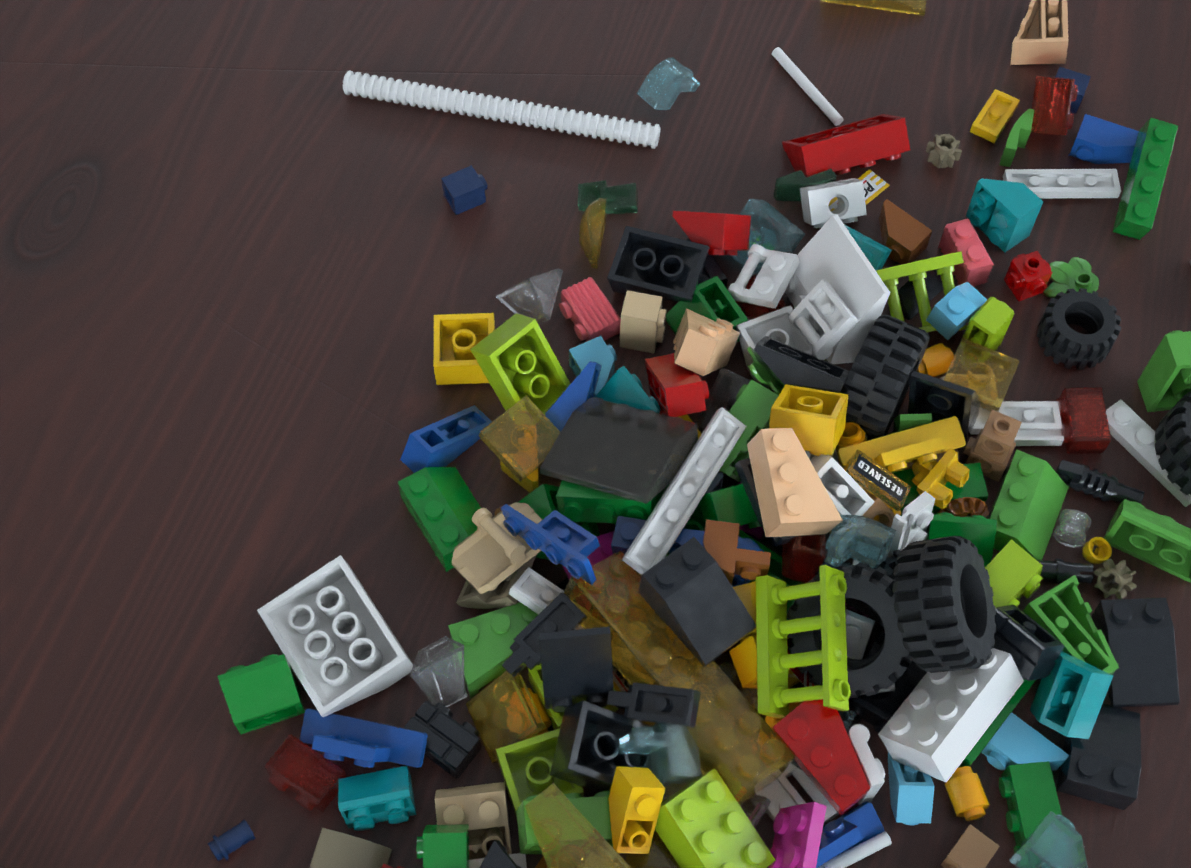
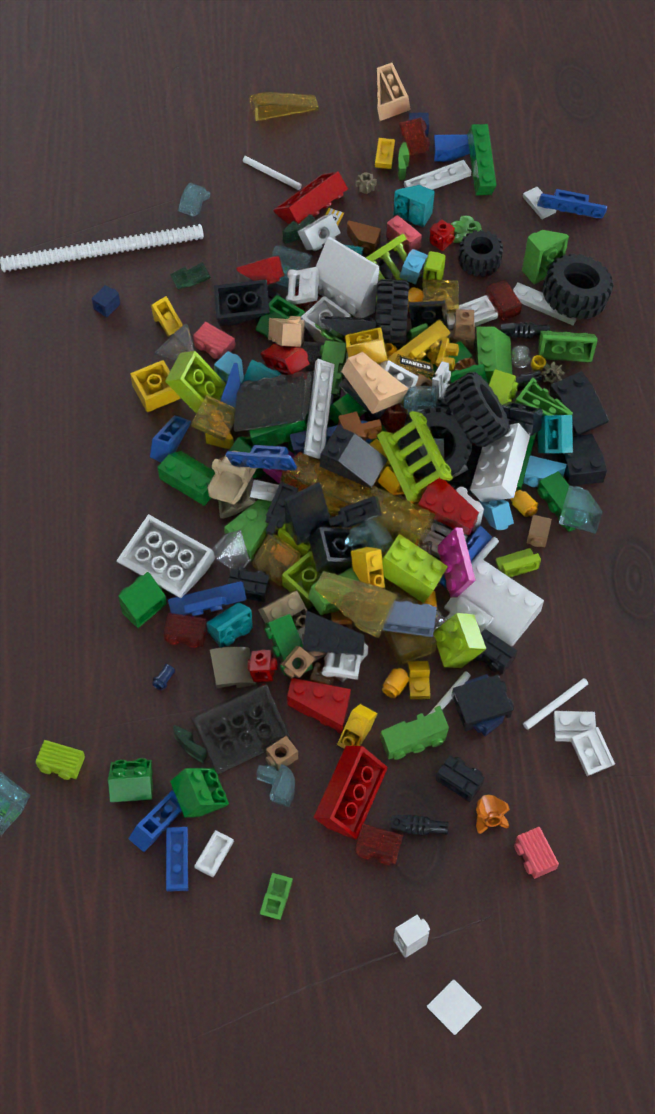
camera: 25 degrees left, 0 degrees up
(537, 245) = (166, 315): none -> yellow slope
(592, 231) = (193, 299): clear yellow slope -> none
(642, 322) = (247, 335): tan brick -> none
(829, 313) = (349, 289): white plate -> none

